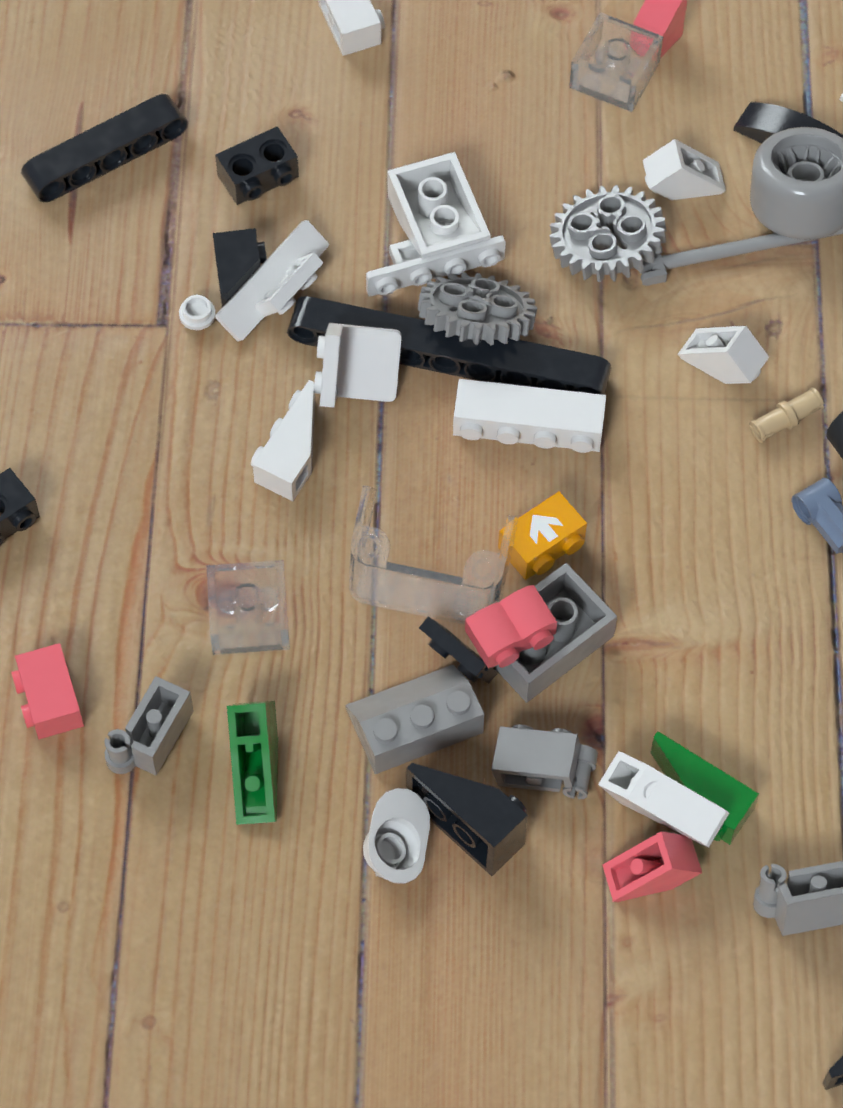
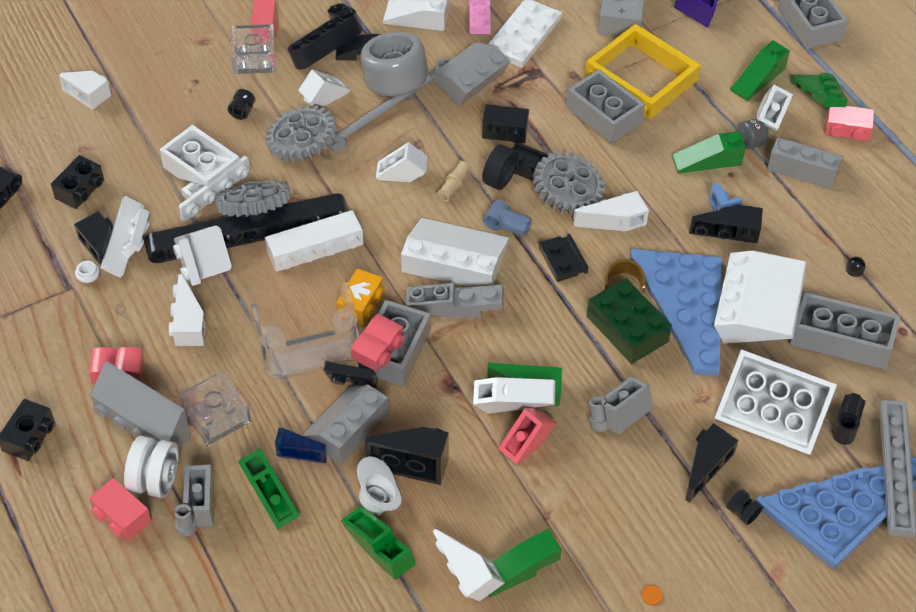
camera: 30 degrees left, 10 degrees down
(116, 653) = (151, 467): none -> white wheel
(147, 563) = (138, 407): none -> light grey slope
(156, 477) = (126, 358): none -> coral brick
(325, 719) = (299, 447): none -> clear blue slope
(355, 917) = (379, 542): none -> green slope
(455, 1025) = (474, 571): none -> white slope
(525, 1052) = (525, 559): none -> green slope
(542, 760) = (434, 406): light grey hinge -> none
(548, 146) = (241, 104): none -> black wheel
(671, 609) = (451, 302): none -> light grey slope
(718, 531) = (453, 254): none -> white slope
(736, 89) = (341, 28): none -> black beam

